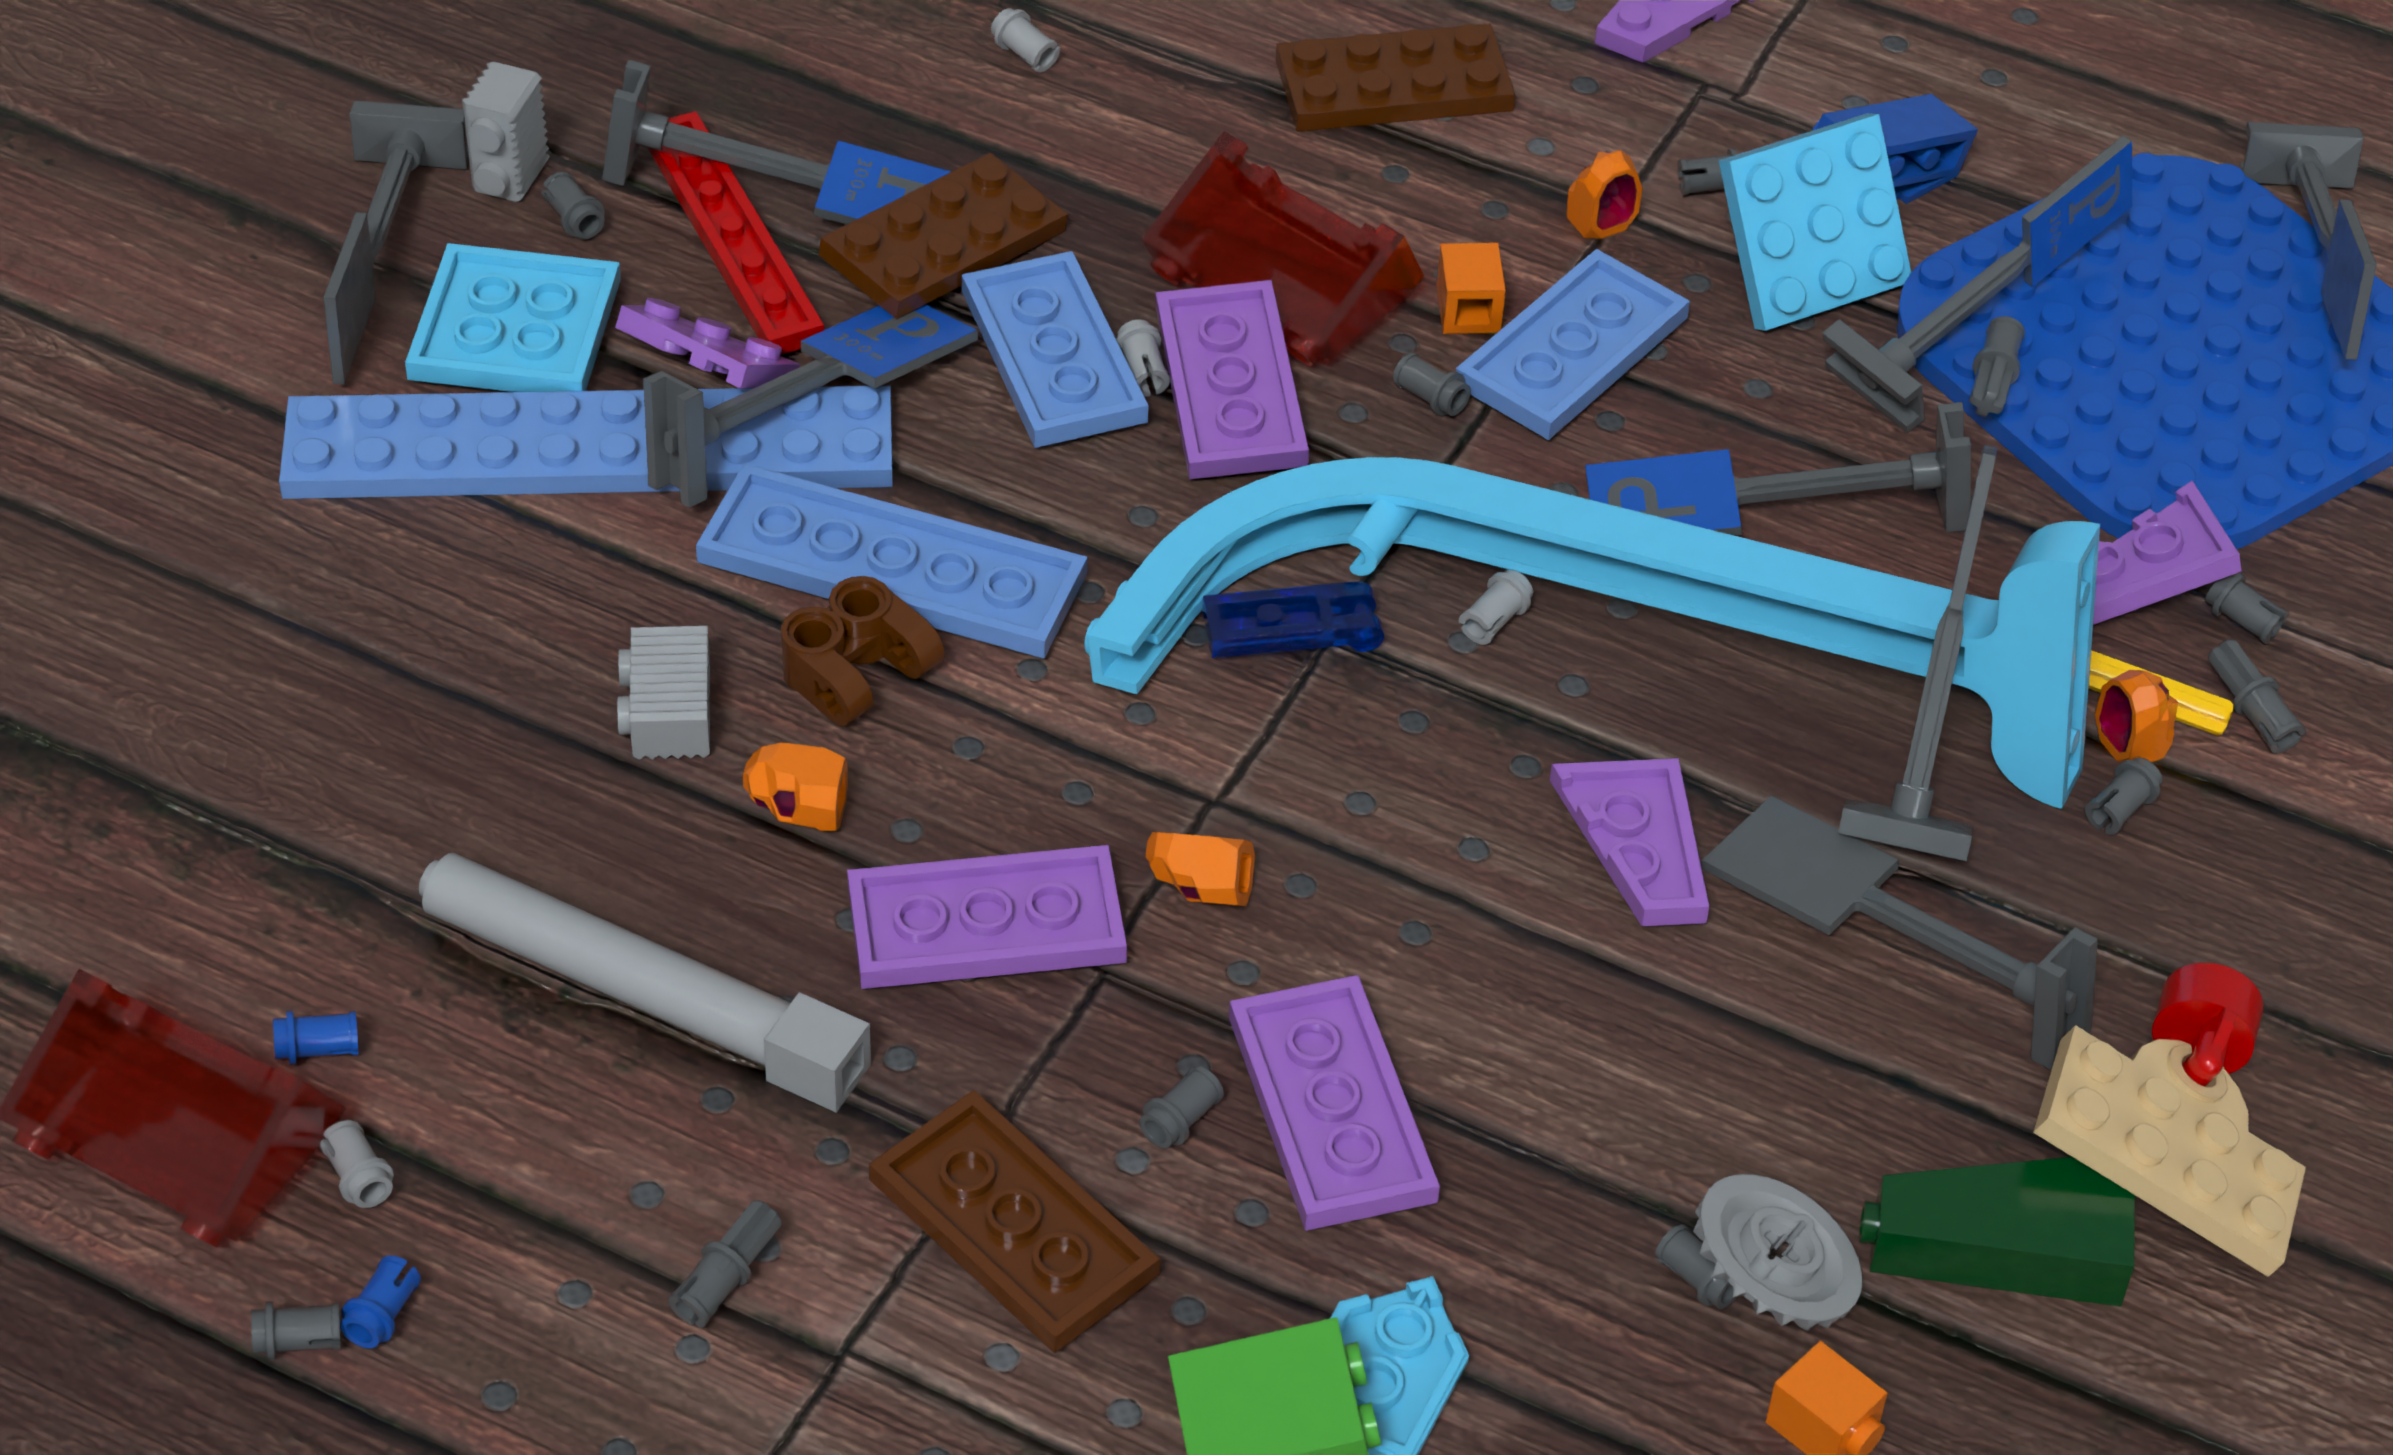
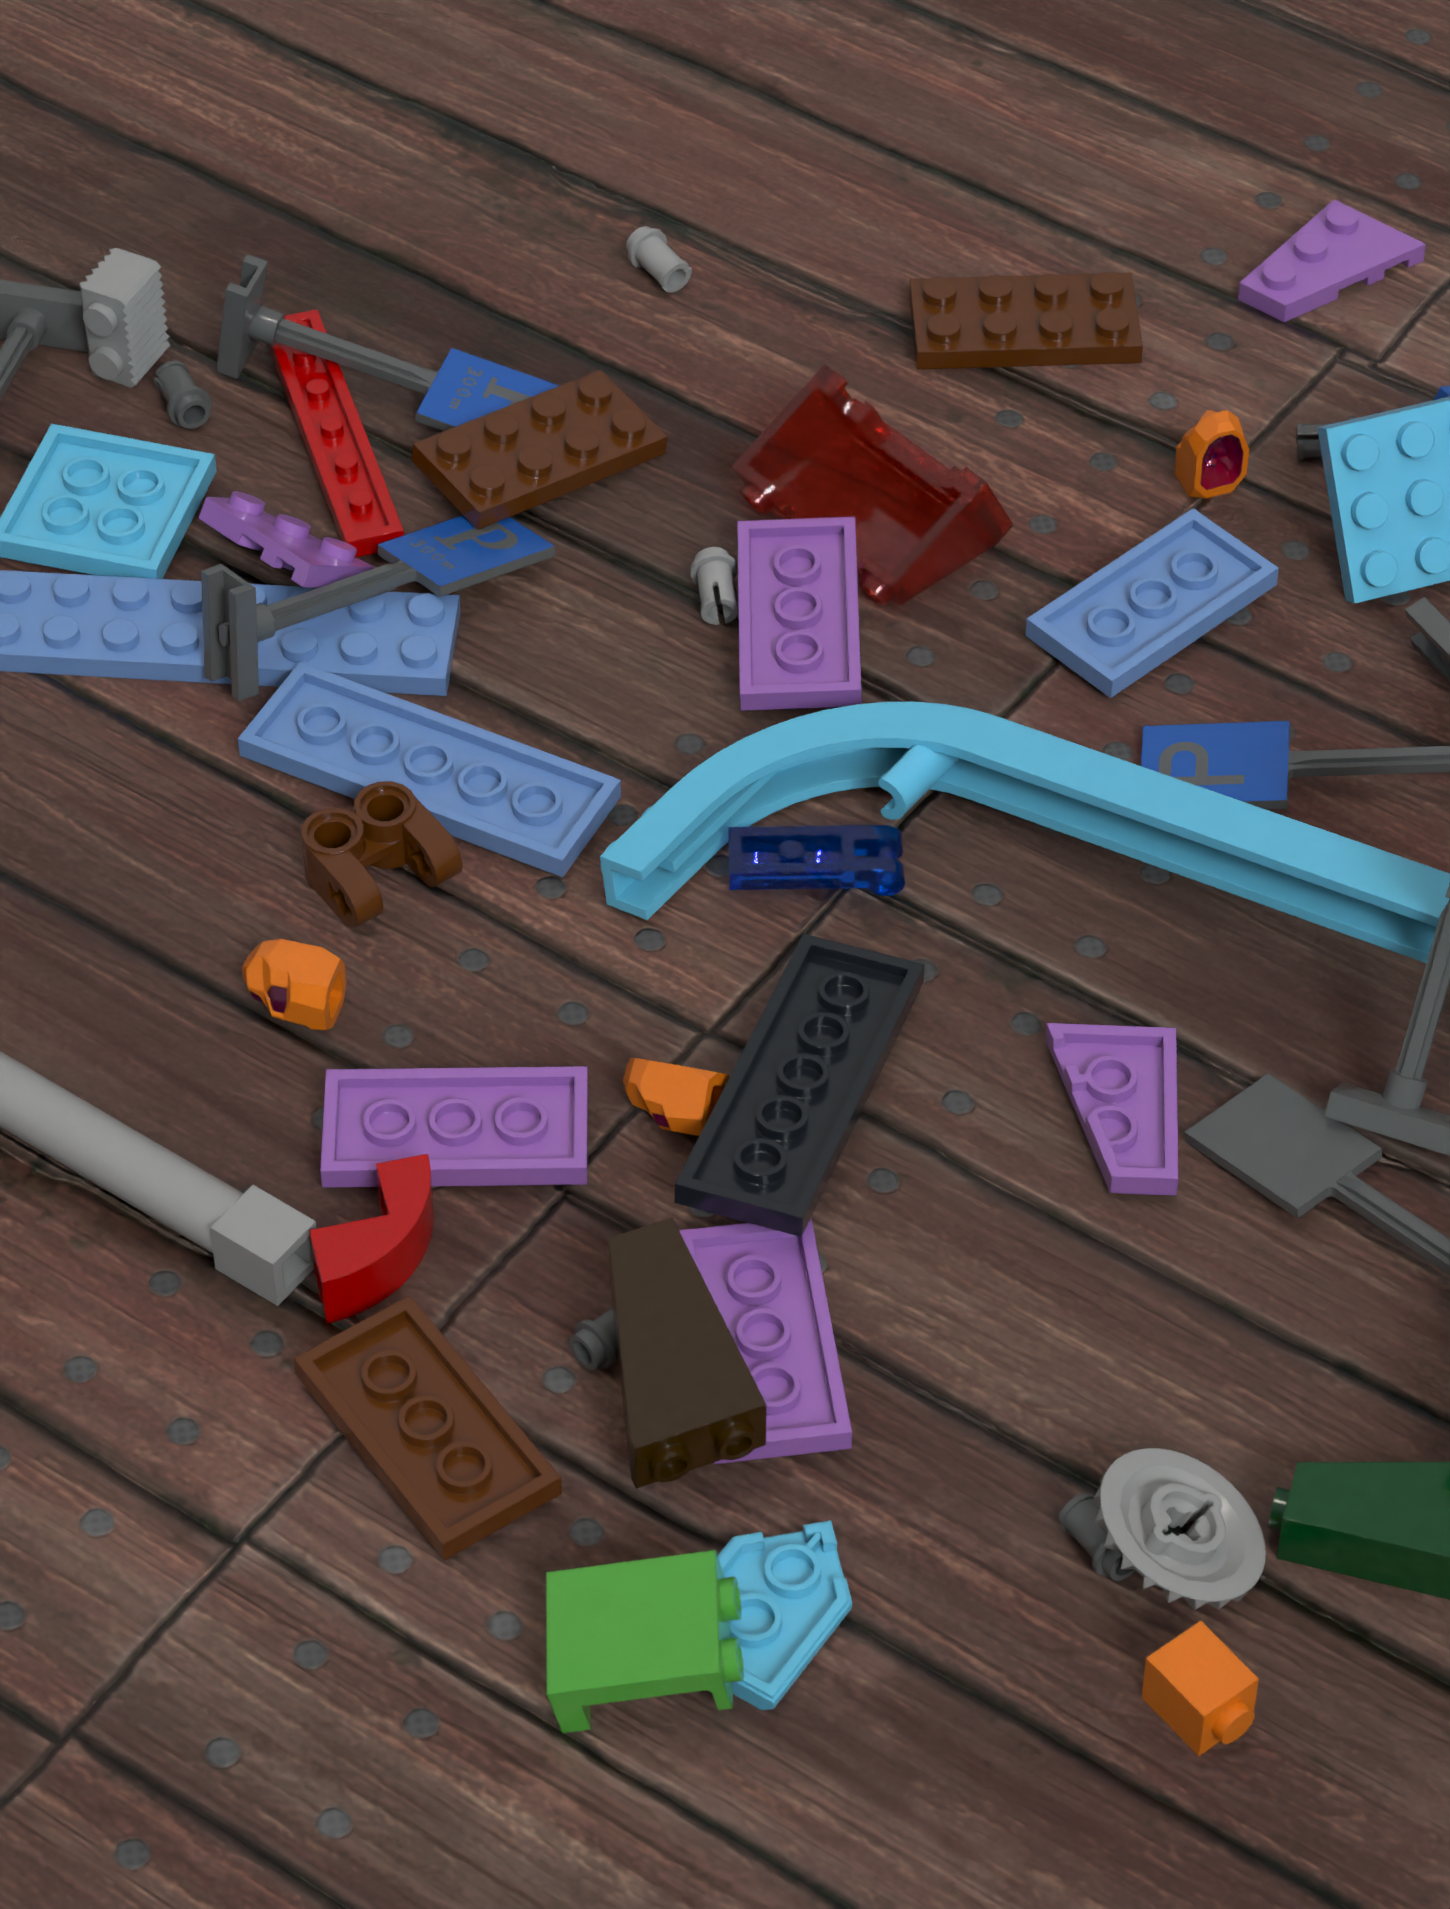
camera: 10 degrees right, 0 degrees up
(667, 691) = (184, 880): light grey brick -> none
(724, 1265) = (139, 1443): dark grey axle -> none
(925, 1056) = (373, 1257): none -> red brick
(1054, 349) = (628, 570): medium blue plate -> none
(1258, 1130) = (678, 1364): none -> dark brown slope
(1323, 846) = (800, 1085): none -> black plate
(1443, 390) = (1012, 640): dark grey pin -> none
(1470, 288) = (1057, 539): orange brick -> none
(1506, 596) = (1035, 852): light grey pin -> none

